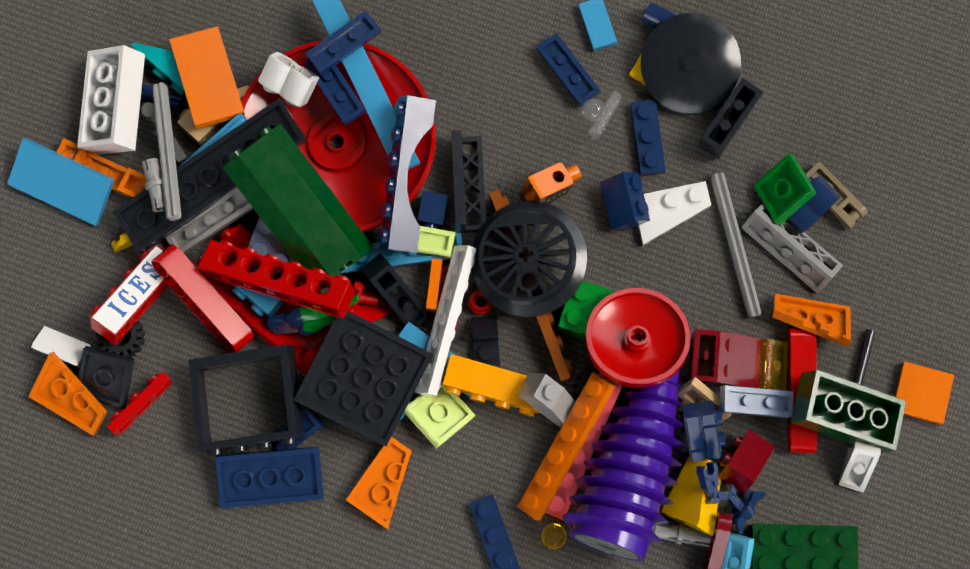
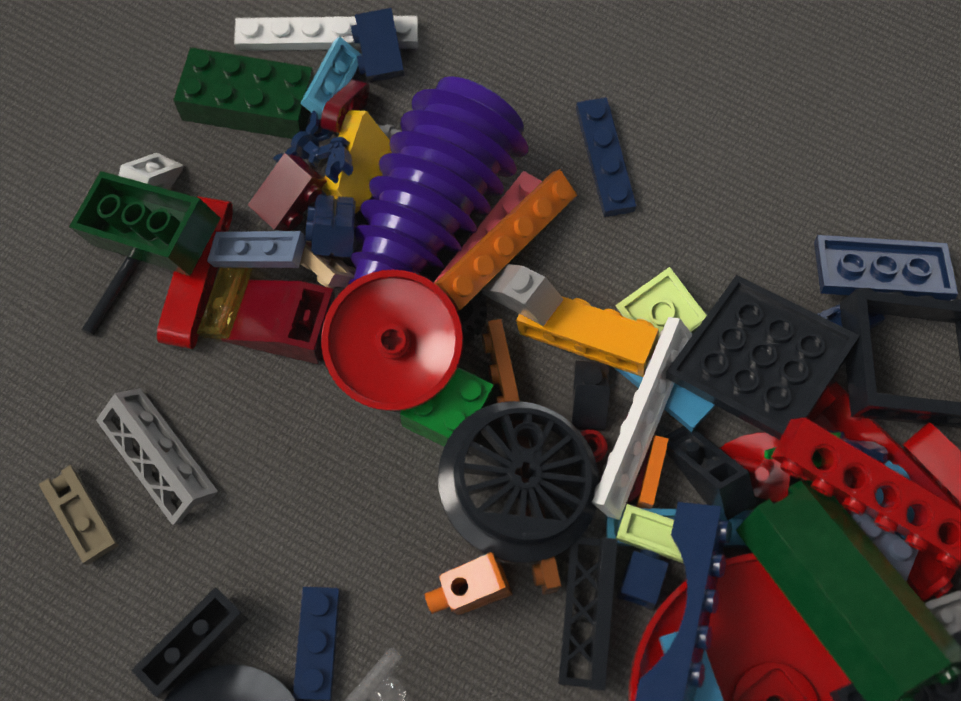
camera: 175 degrees left, 10 degrees down
(380, 484) = (744, 243): orange wing -> none
(556, 533) = (544, 151): clear yellow wheel -> none
(625, 201) = (369, 546): dark blue brick -> none
(672, 208) = (310, 534): white wing -> none
(735, 245) = (231, 473): light grey axle -> none
(784, 189) = (141, 524): green tile -> none
(816, 206) = (112, 500): dark blue brick -> none
(816, 317) = (151, 353): orange wing -> none
(924, 392) = (45, 250): orange tile -> none

